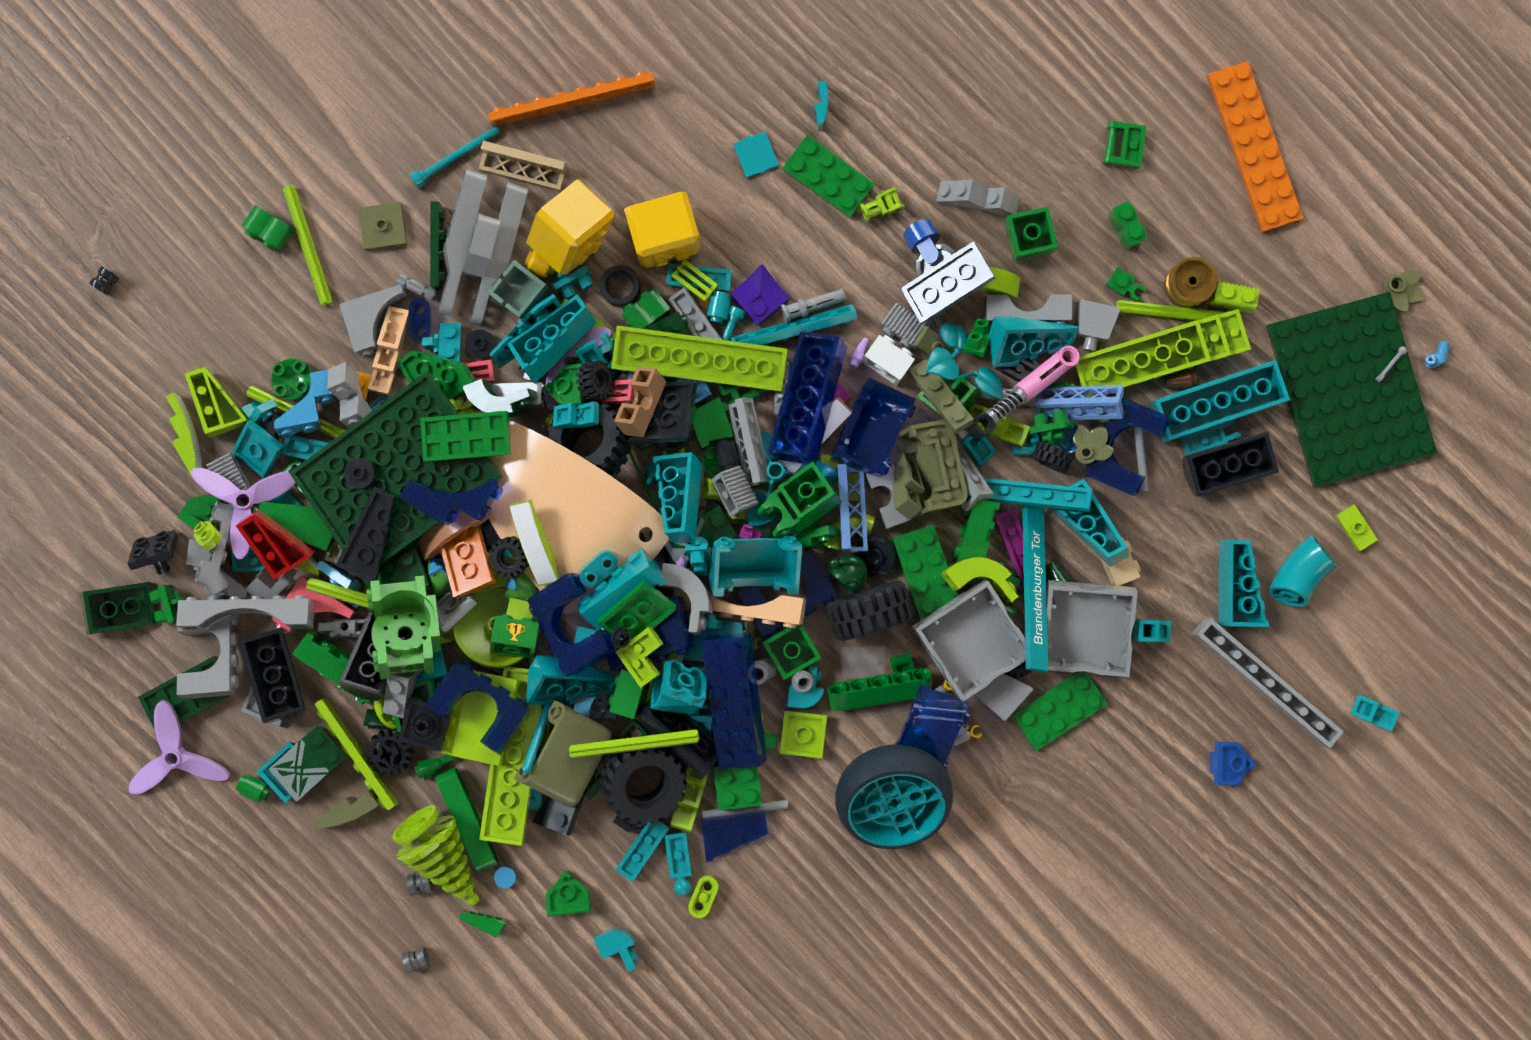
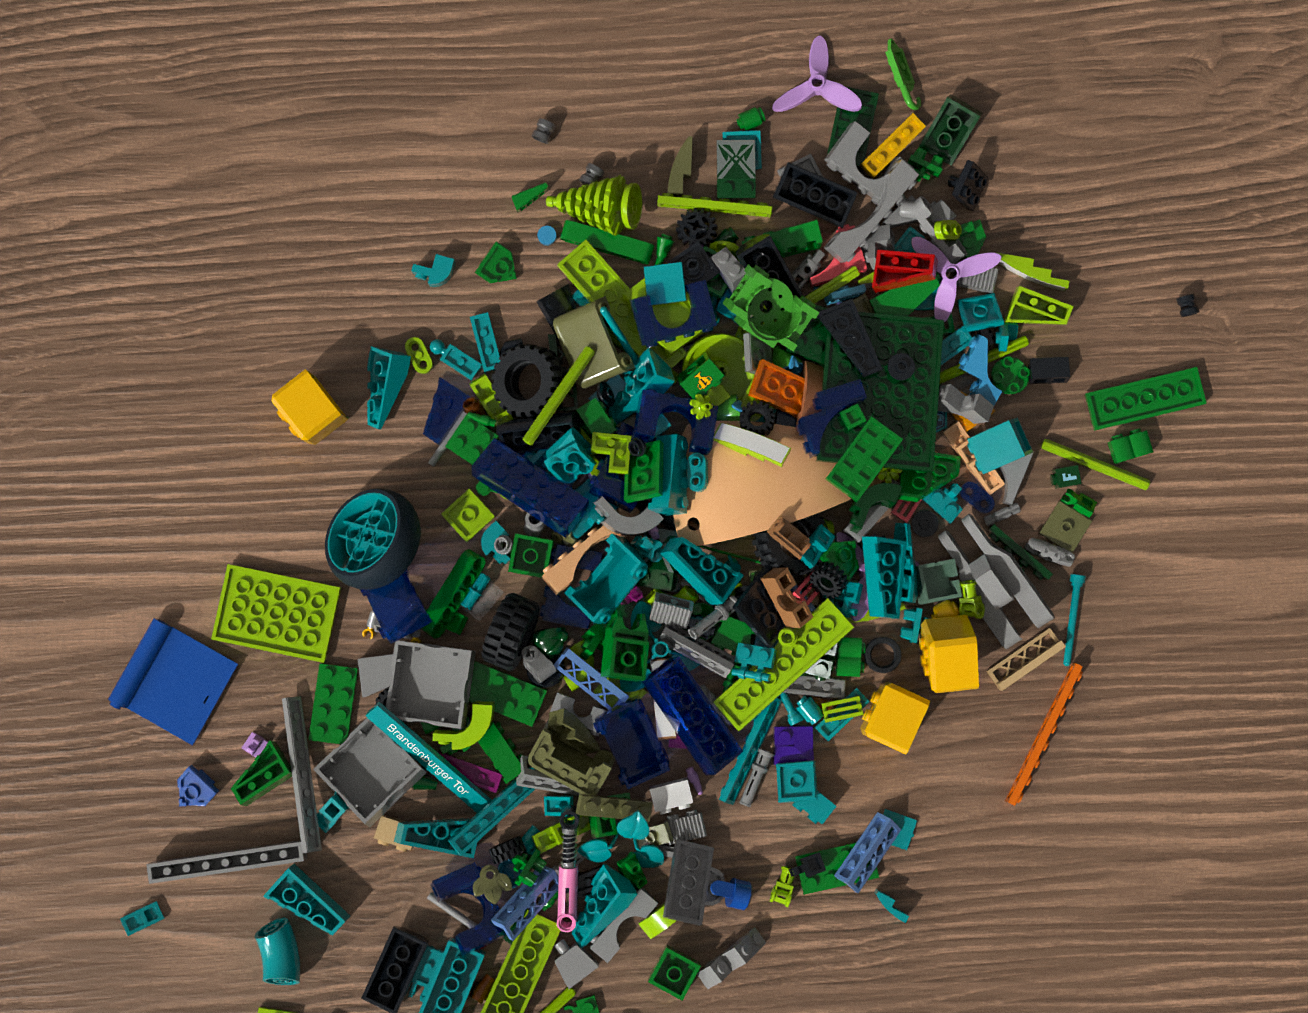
camera: 135 degrees right, 0 degrees up
(103, 692) = (902, 73): none -> bright green plate
(174, 645) = (892, 145): none -> yellow plate
(215, 249) = (1145, 398): none -> green plate
(259, 349) = (1049, 370): none -> black hinge
(339, 260) = (1065, 477): none -> dark green brick
(350, 228) = (1081, 502): none -> green plate
(358, 334) = (999, 445): none -> teal slope
(414, 220) = (1049, 552): none -> light grey hinge
(437, 476) = (853, 417): none -> green plate
(458, 736) = (665, 283): none -> teal tile
(513, 248) = (971, 603): none -> lime connector
(538, 612) = (701, 406): none -> lime plant
(586, 442) = (789, 537): none -> medium nougat hinge
(680, 373) = (781, 637): none -> lime plate
(702, 448) = (720, 612): none -> light grey pin
(708, 808) = (473, 405): none -> reddish brown cone
(710, 791) = (483, 419): none -> green piece
(712, 387) = (754, 656): none -> teal plate
(746, 906) = (387, 375): none -> teal wedge
(787, 266) = (796, 781): none -> teal tile
(792, 239) = (818, 809): none -> teal brick
(794, 161) = (866, 850): none -> medium blue fence
(831, 952) = (308, 408): none -> yellow plate
(846, 195) = (810, 865): none -> black plate
(861, 671) = (475, 591): none -> teal axle
(877, 565) = (537, 663): none -> light grey piece
(1026, 825) = (276, 613): none -> lime plate
(1141, 683) = (301, 774): none -> light grey tile
(1150, 745) = (254, 744): none -> lavender tile
(1159, 864) = (171, 681): none -> blue door
(1169, 715) = (263, 775): none -> green wedge

